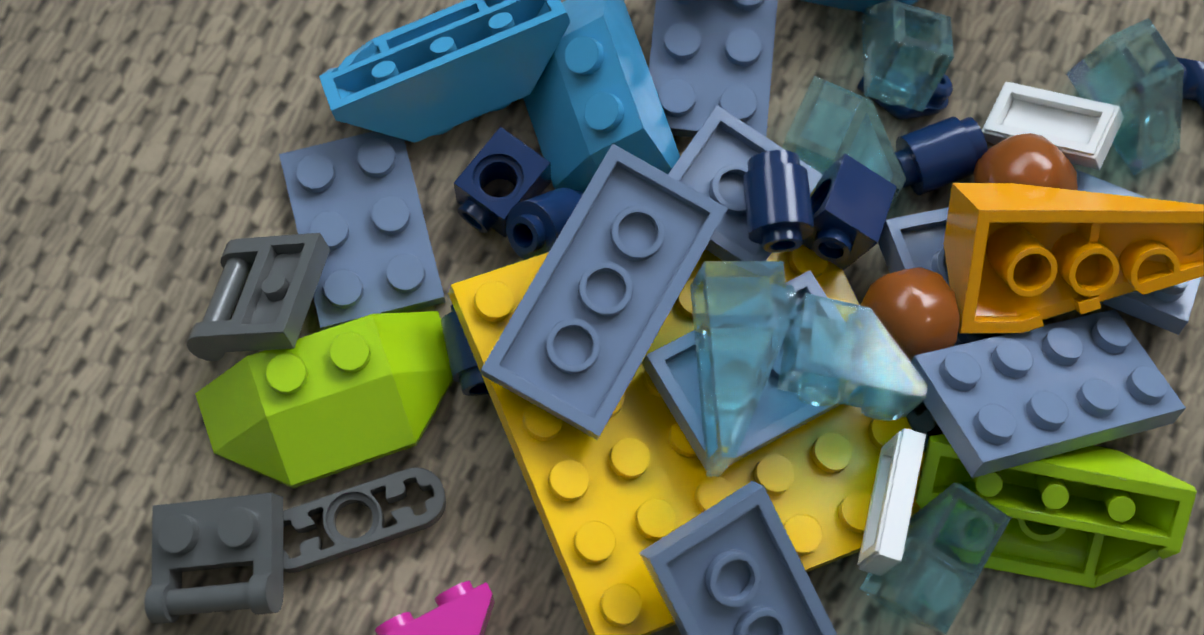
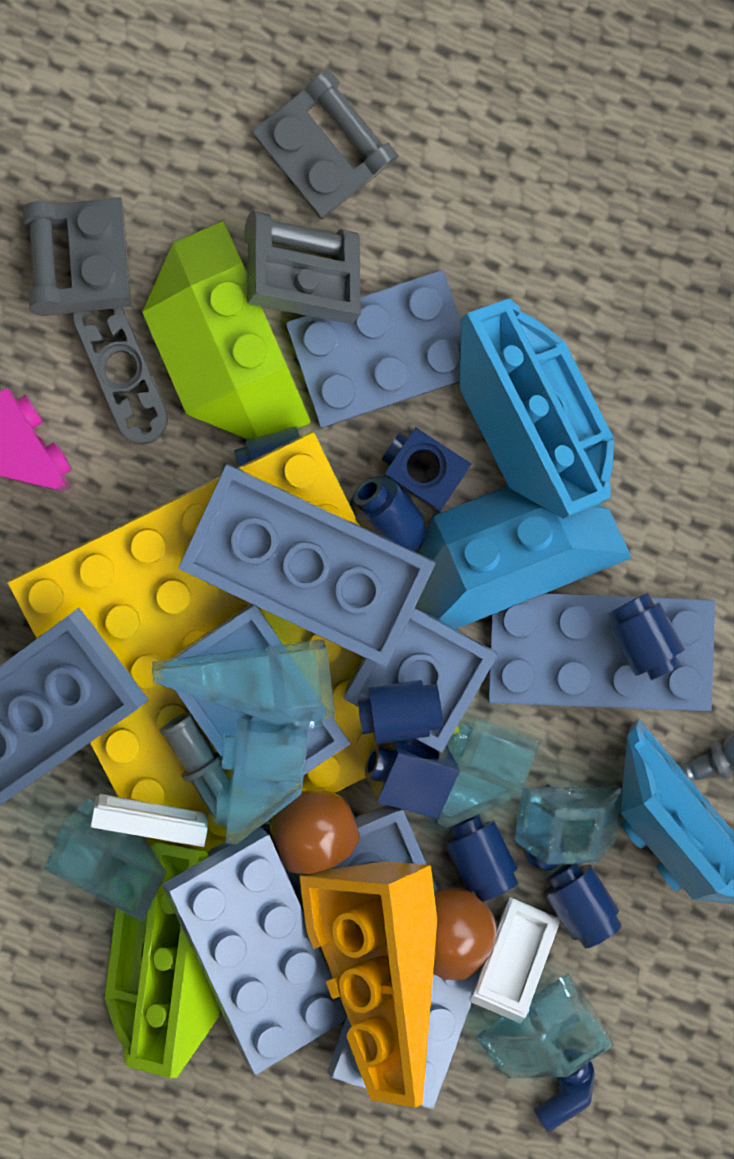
camera: 90 degrees right, 15 degrees up
(131, 292) = (311, 157): none -> dark grey plate
(824, 442) = (197, 758): none -> dark grey axle
(992, 54) = (583, 904): none -> dark blue brick

